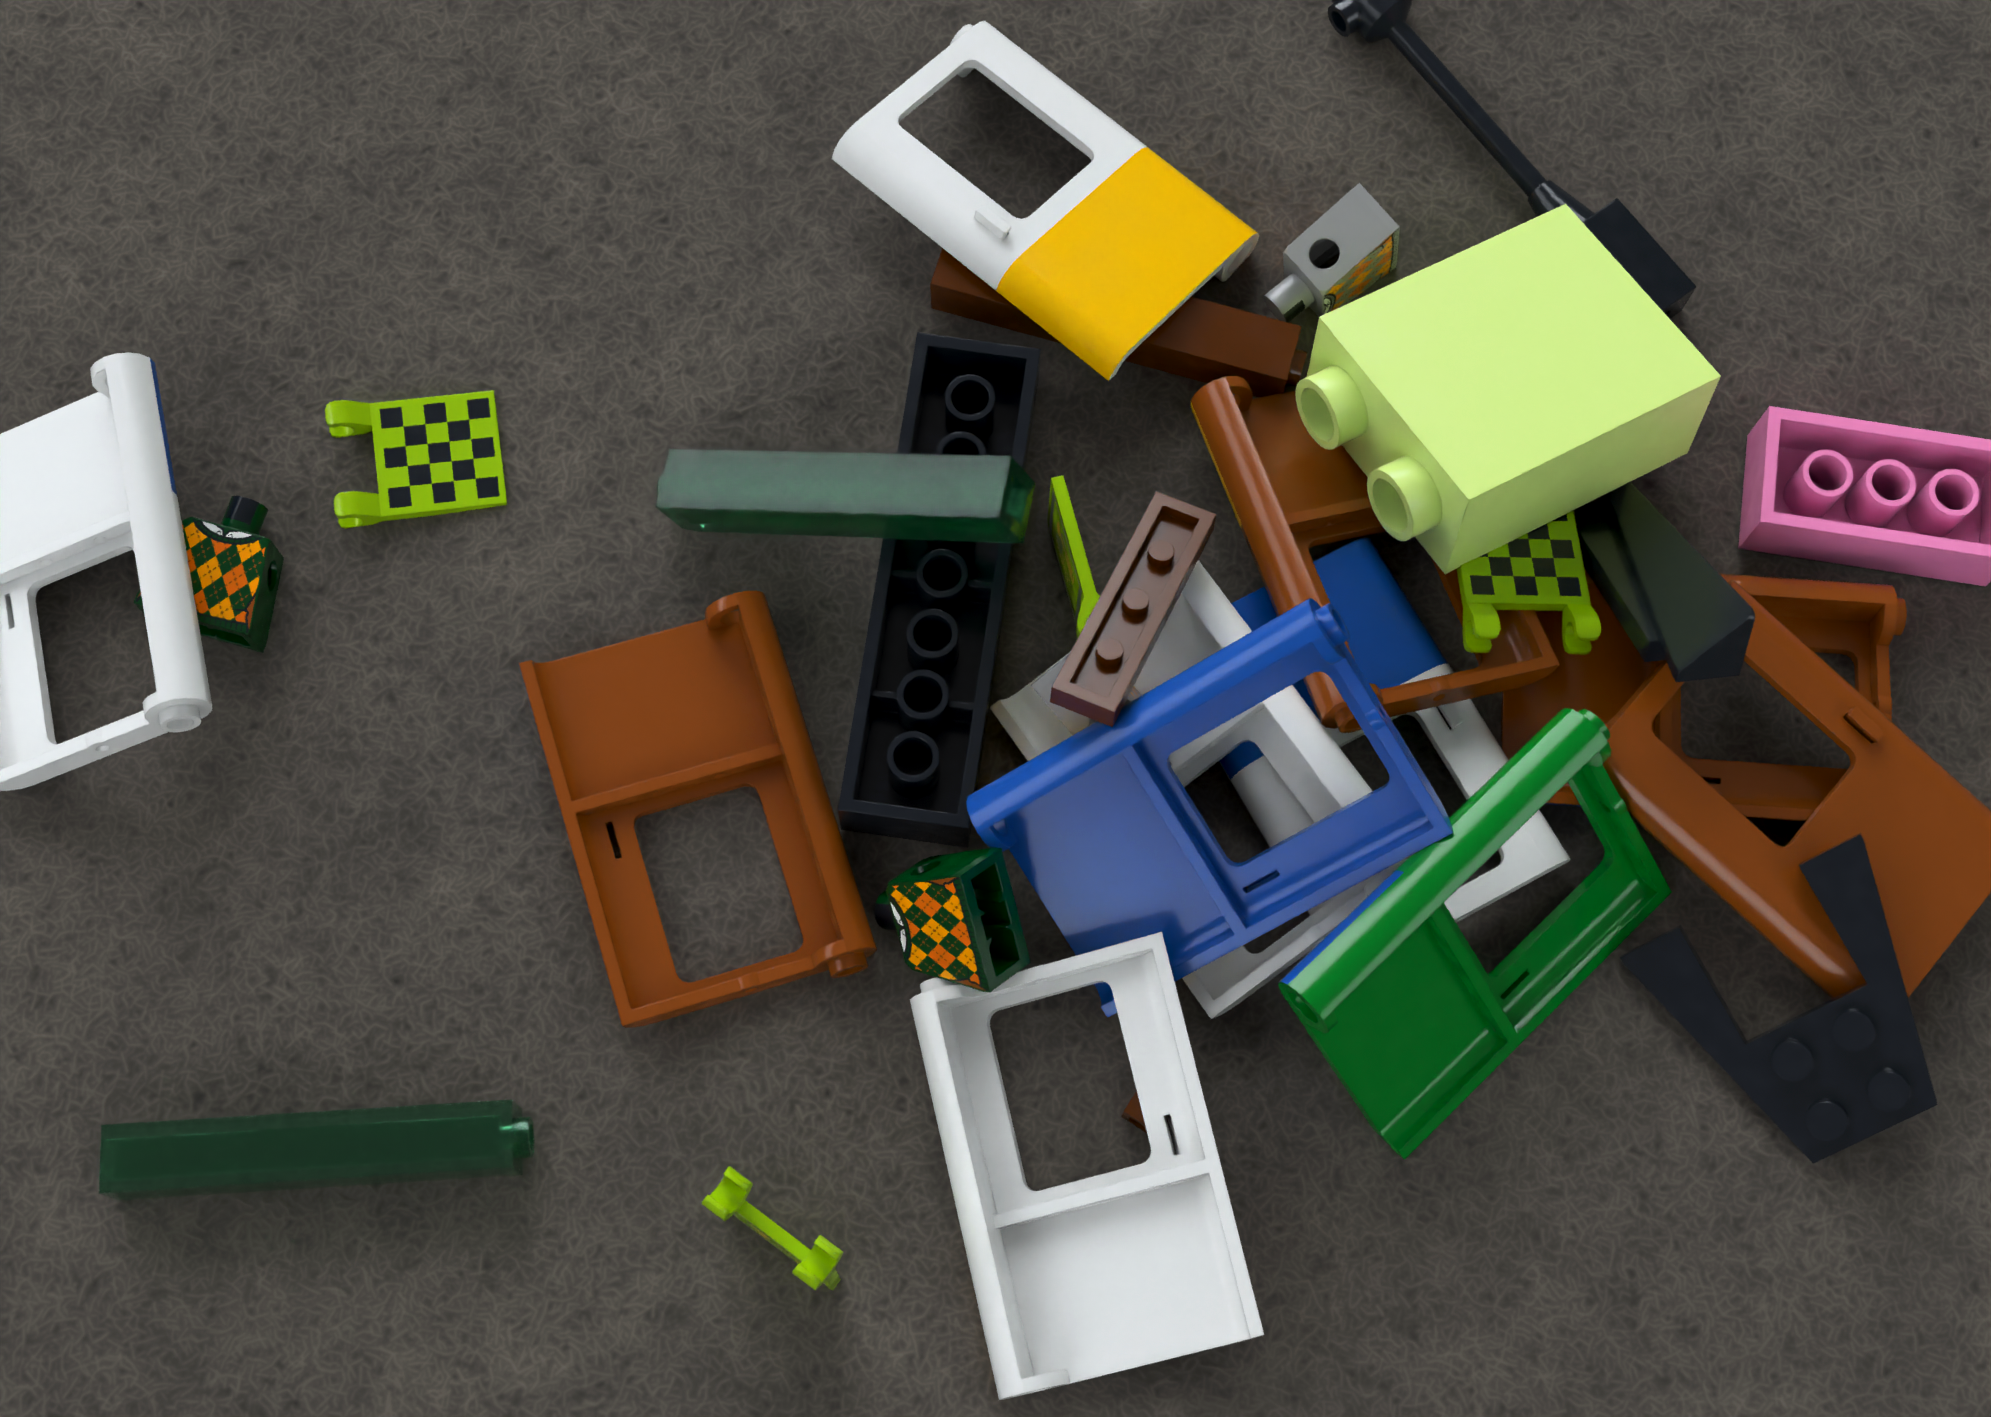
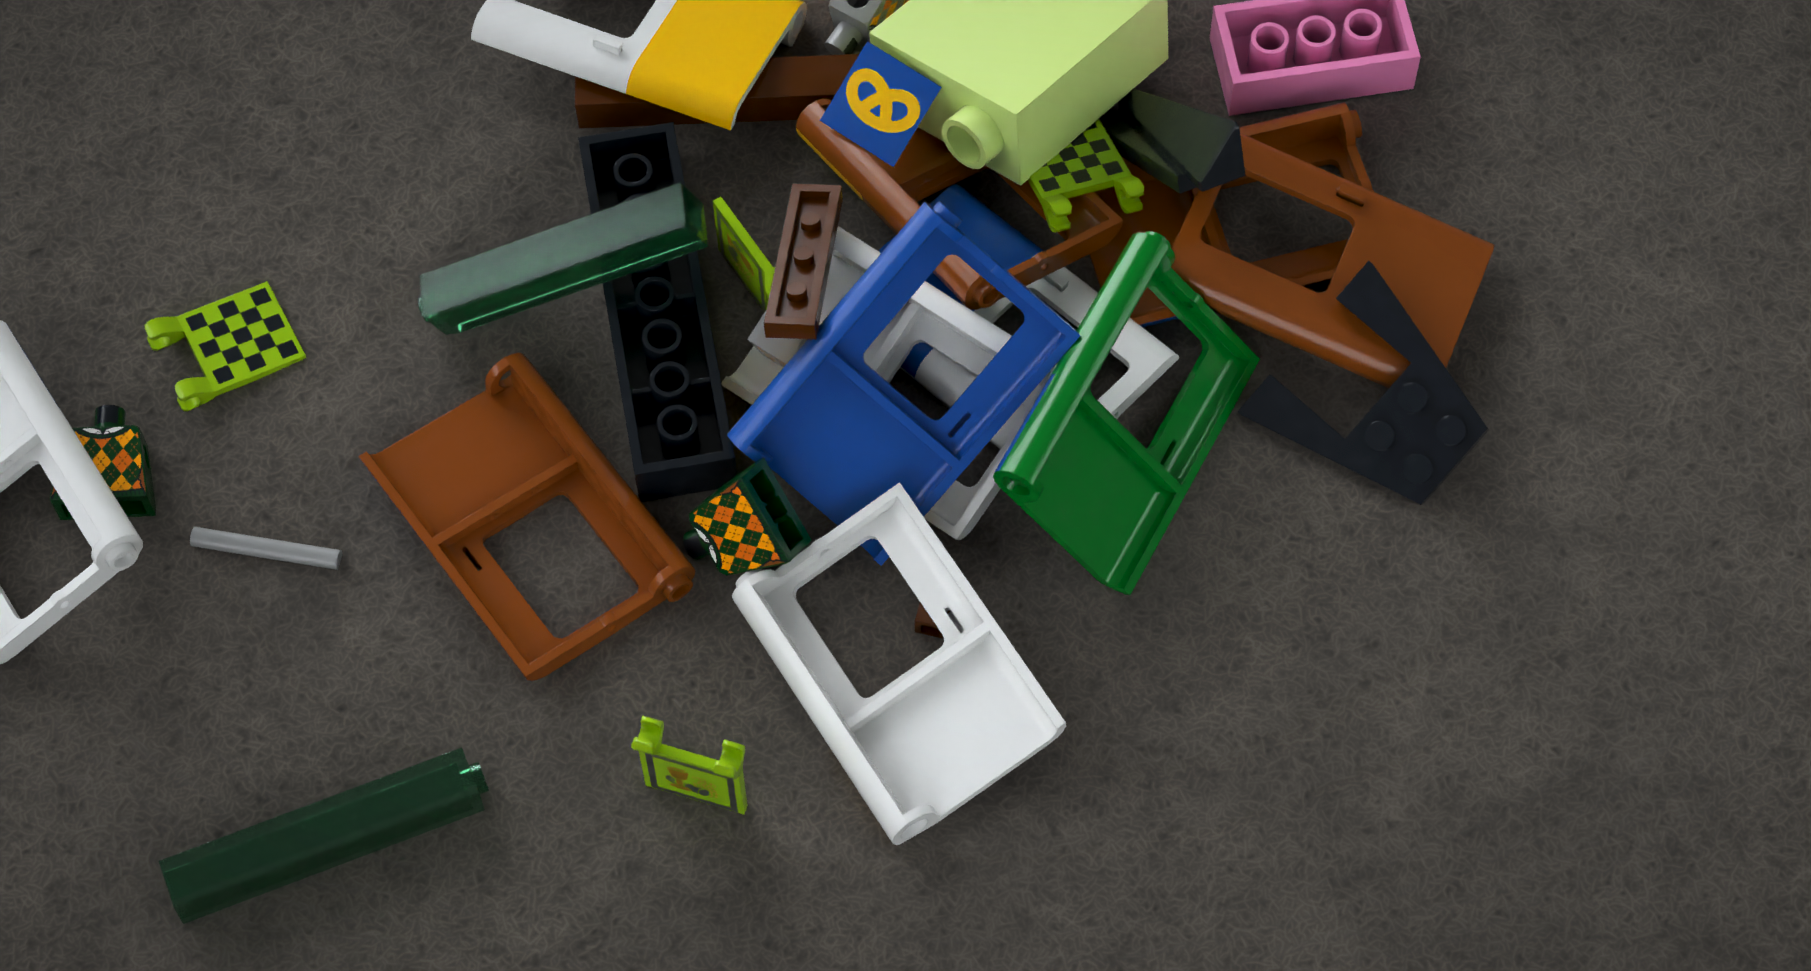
camera: 15 degrees left, 10 degrees down
(376, 740) = (265, 548): none -> light grey bar
(1303, 415) = (880, 104): none -> blue sticker

